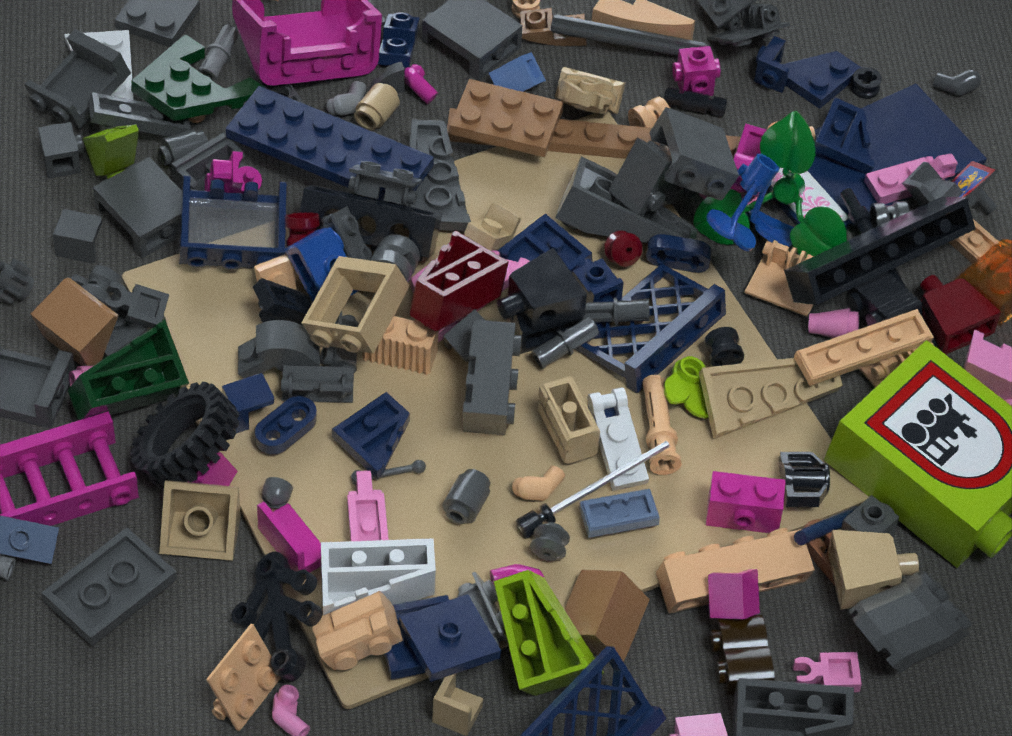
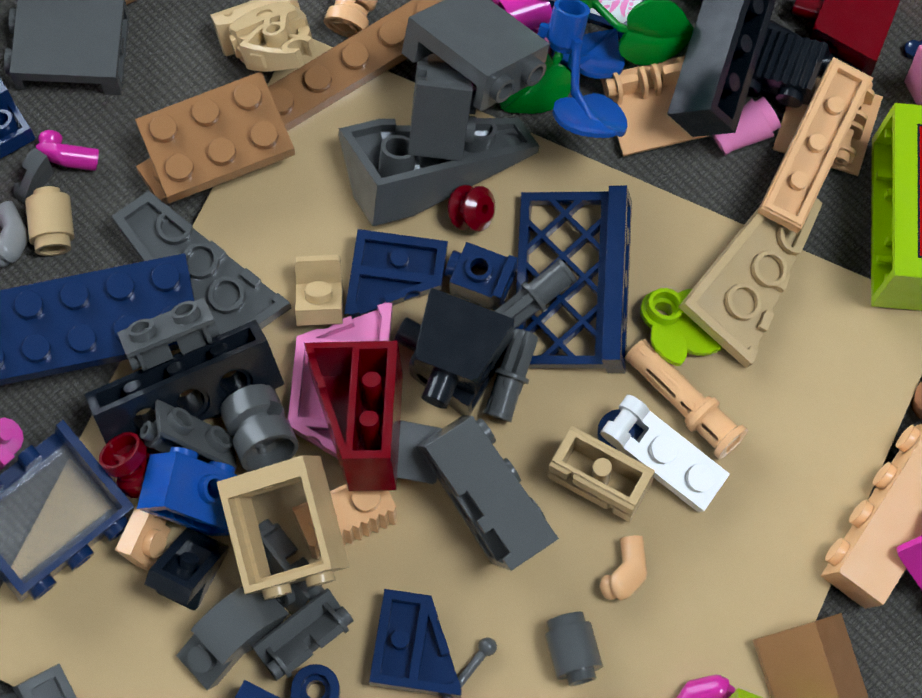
camera: 35 degrees left, 20 degrees up
(518, 74) = (166, 63): medium blue panel -> none
(529, 521) = (660, 620): flat silver piece -> none
(550, 541) = (699, 633): dark grey wheel -> none
(619, 513) = (734, 539): sand blue plate -> none
(679, 253) = (531, 167): dark blue beam -> none
(724, 347) = (674, 252): black wheel -> none
(745, 502) = (849, 428): dark pink brick -> none
(804, 484) = (876, 349): black piece -> none

